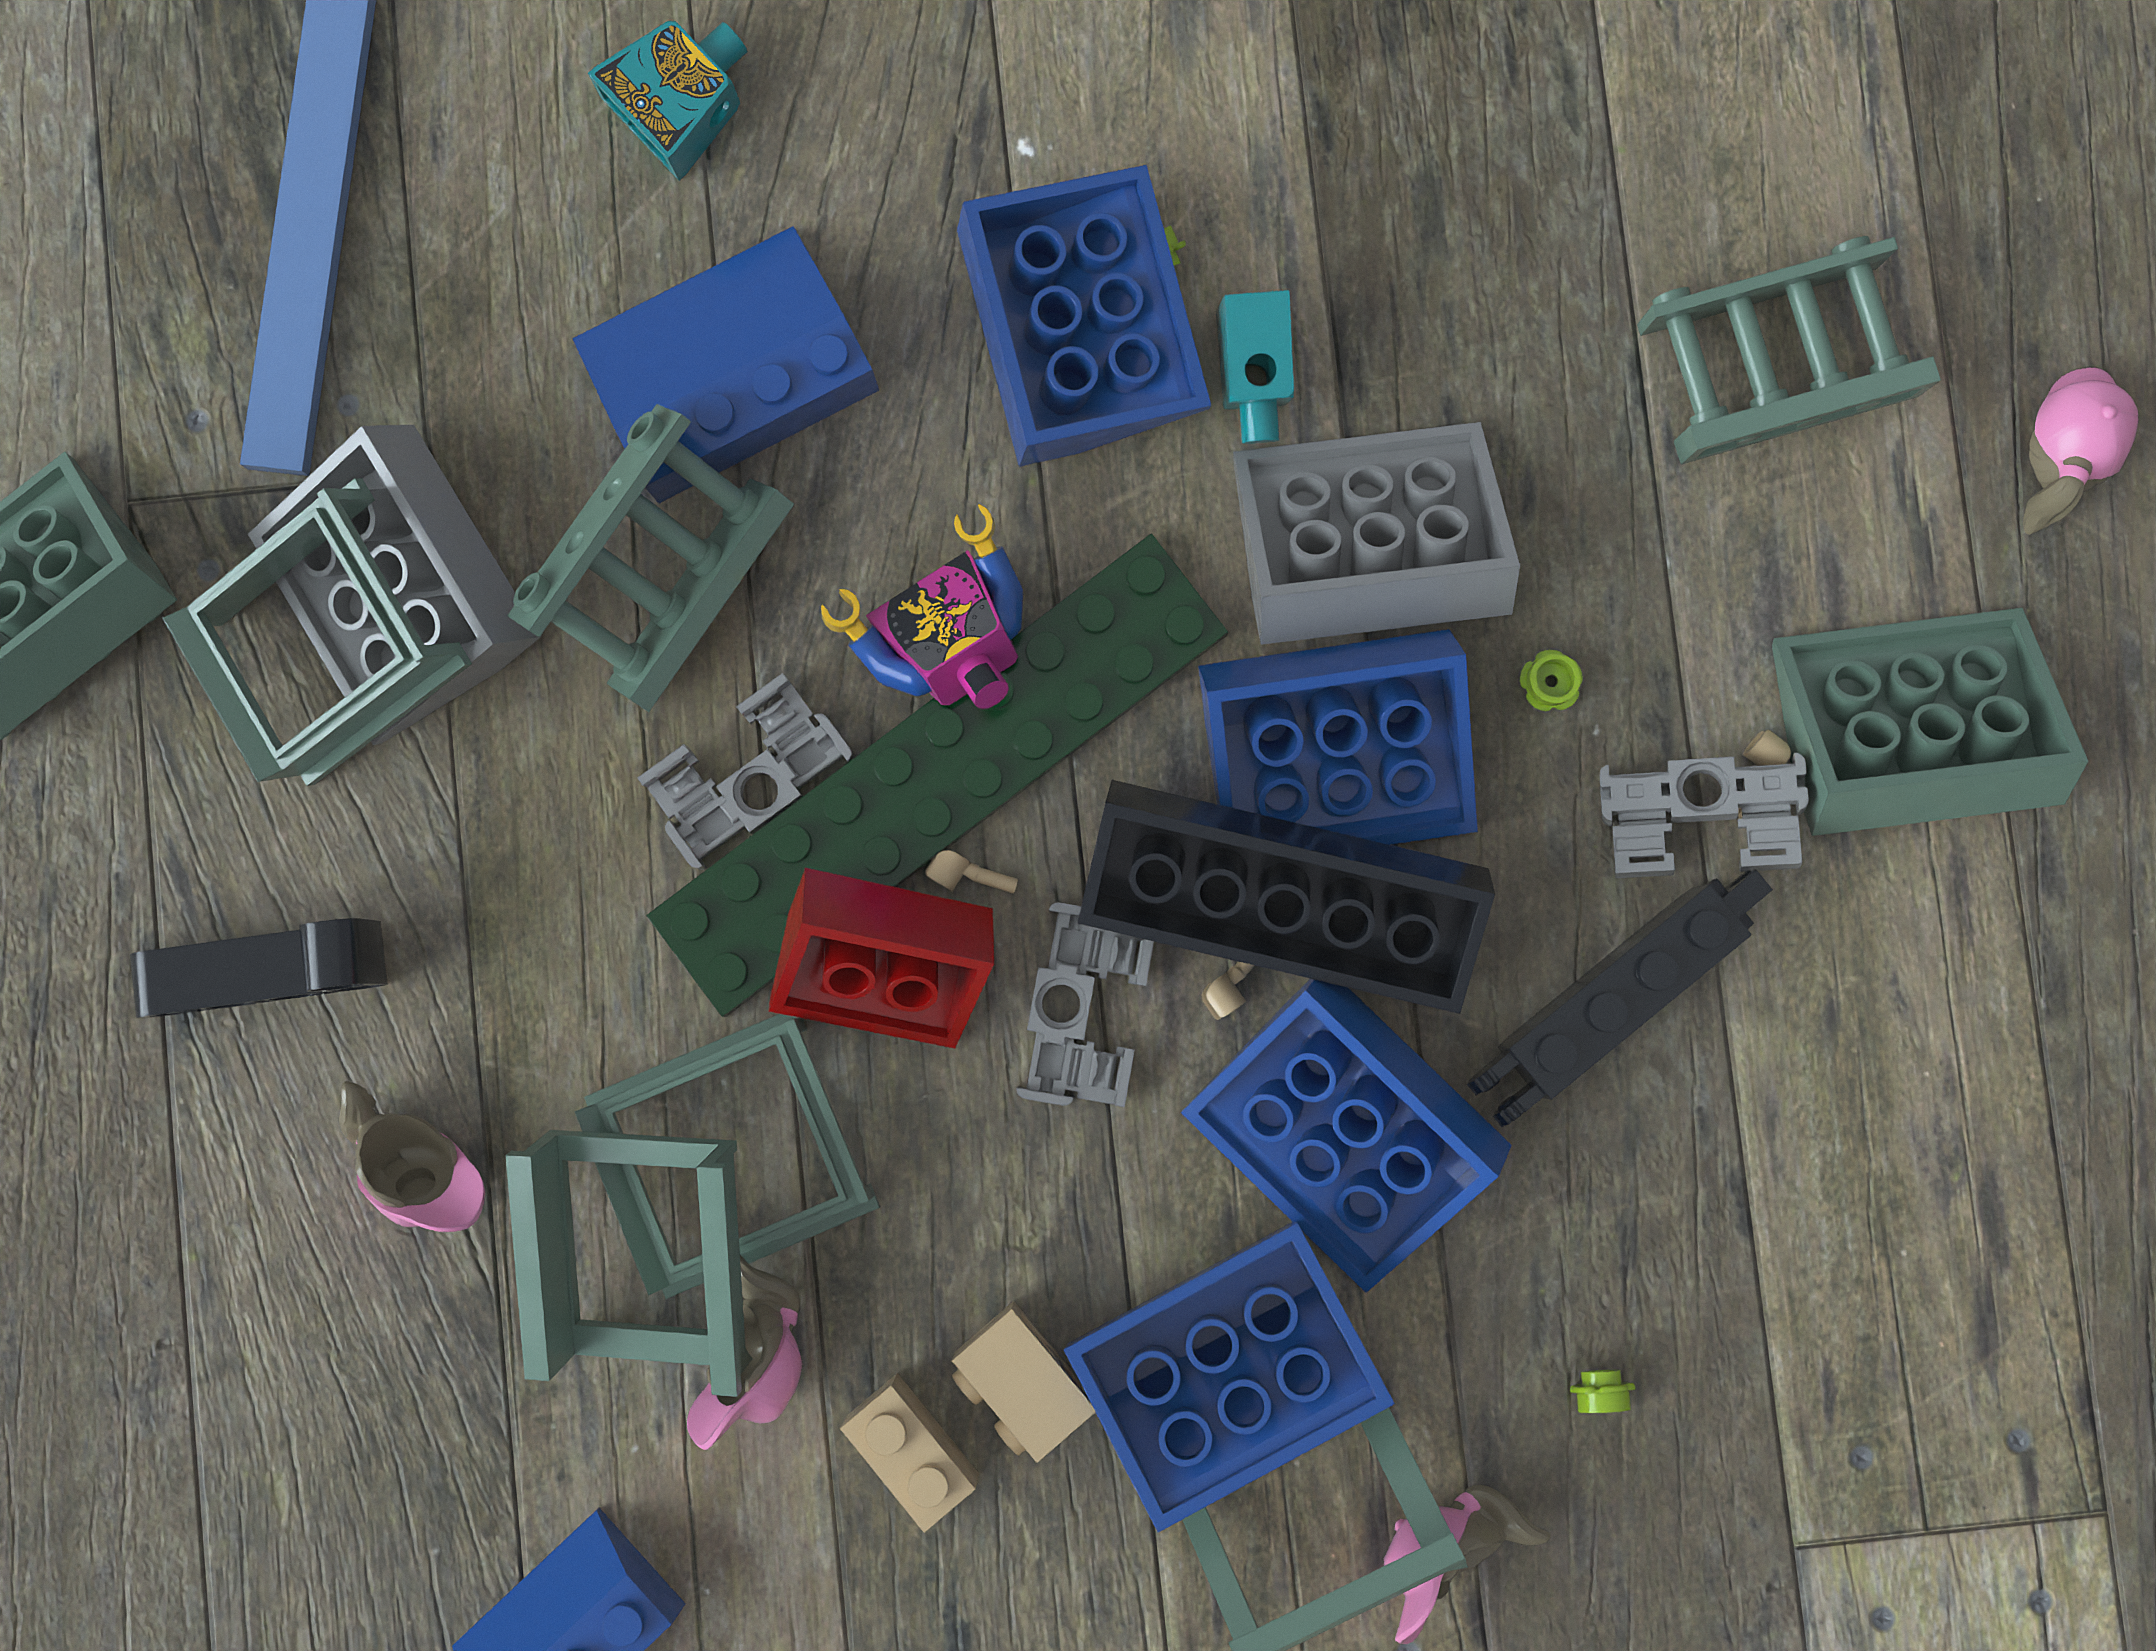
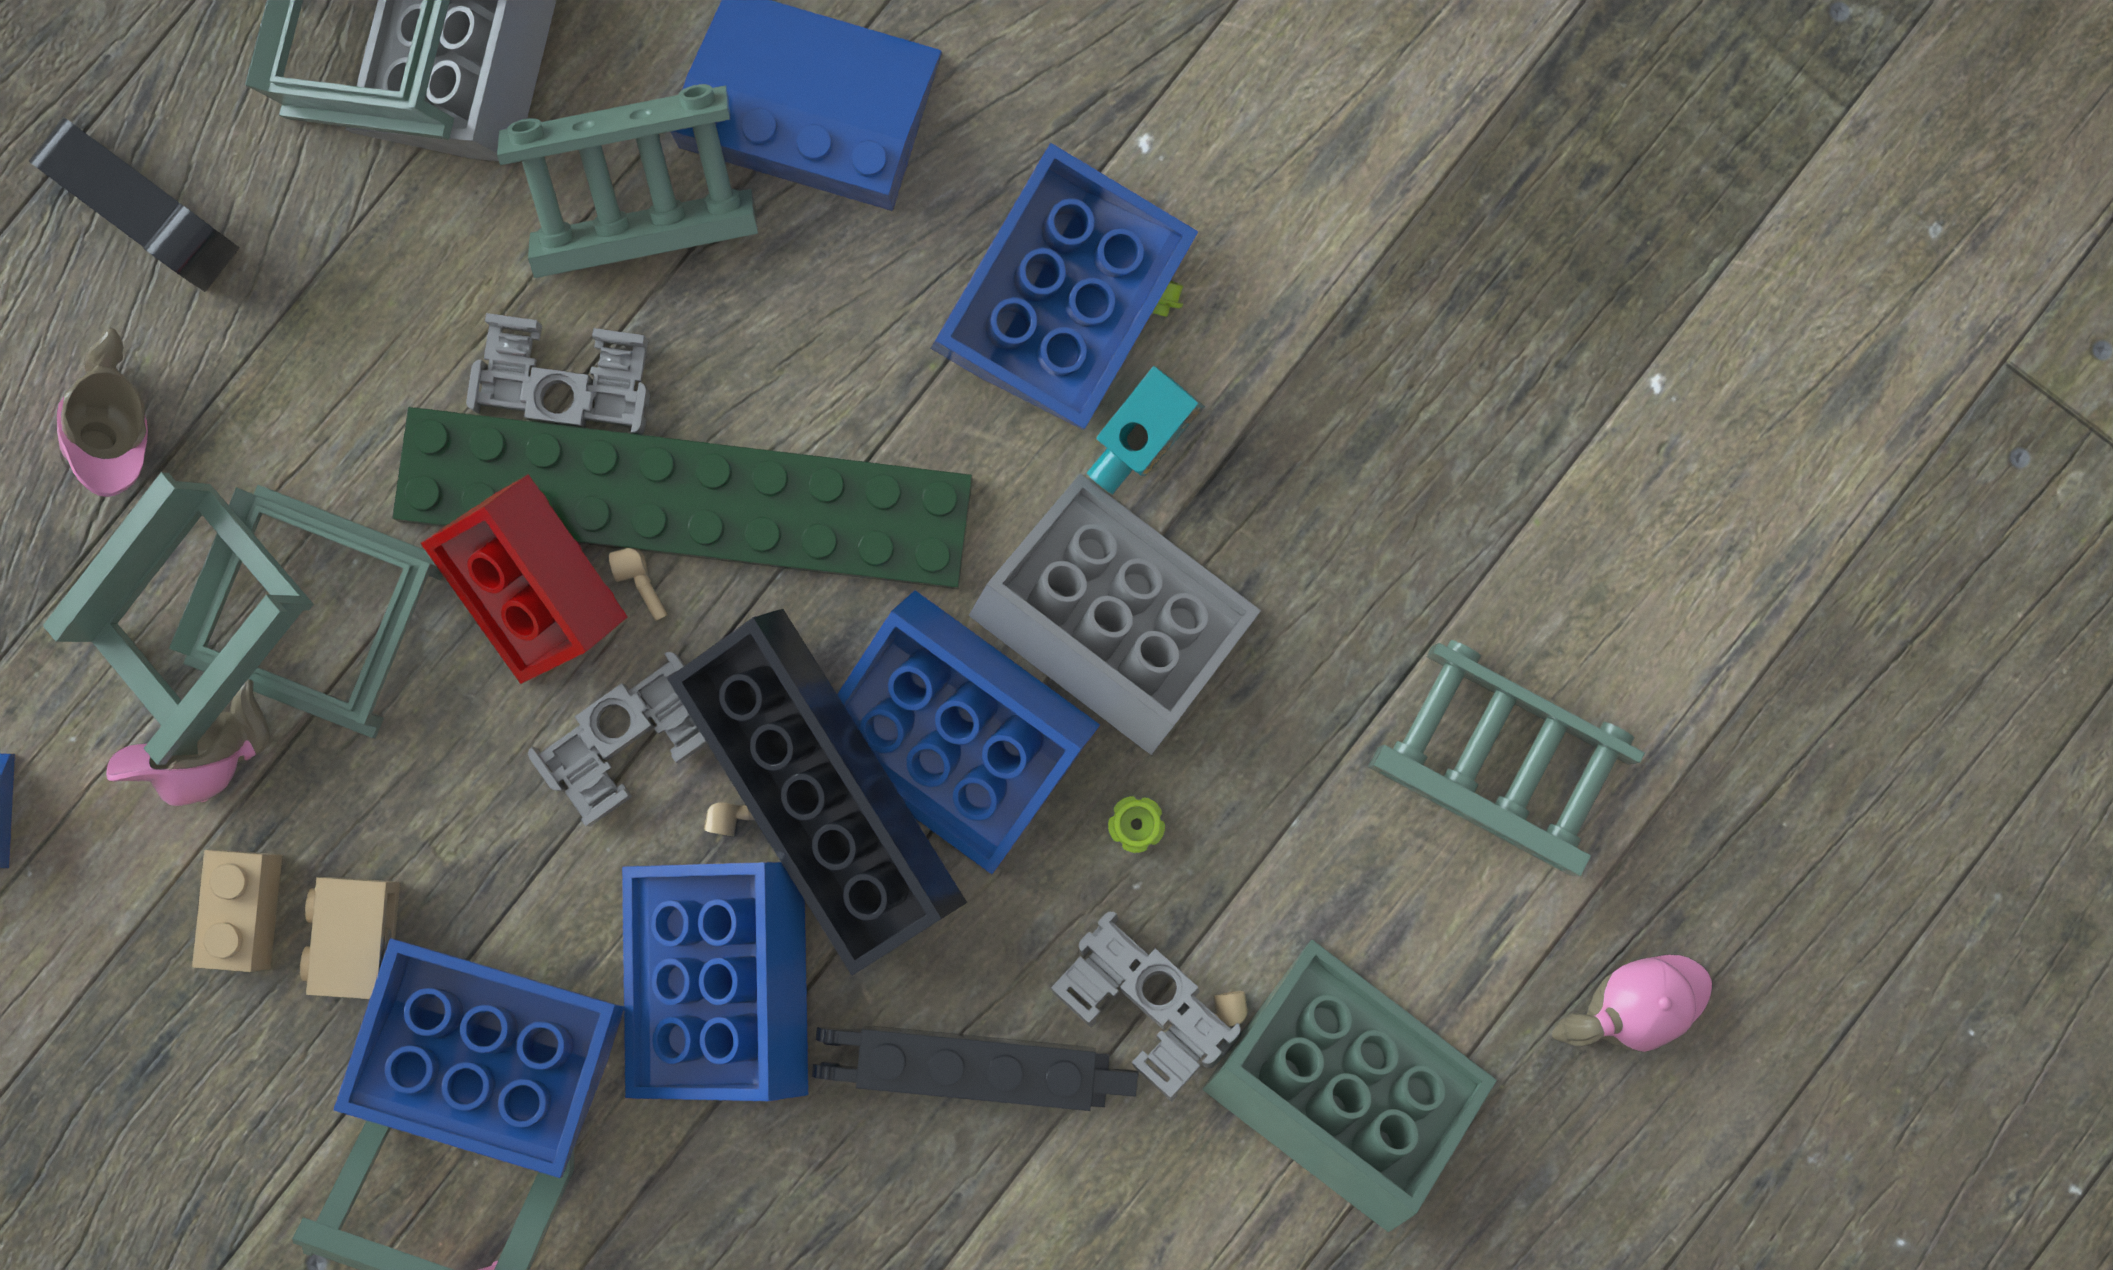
camera: 45 degrees right, 0 degrees up
(946, 630) = (775, 408): torso -> none

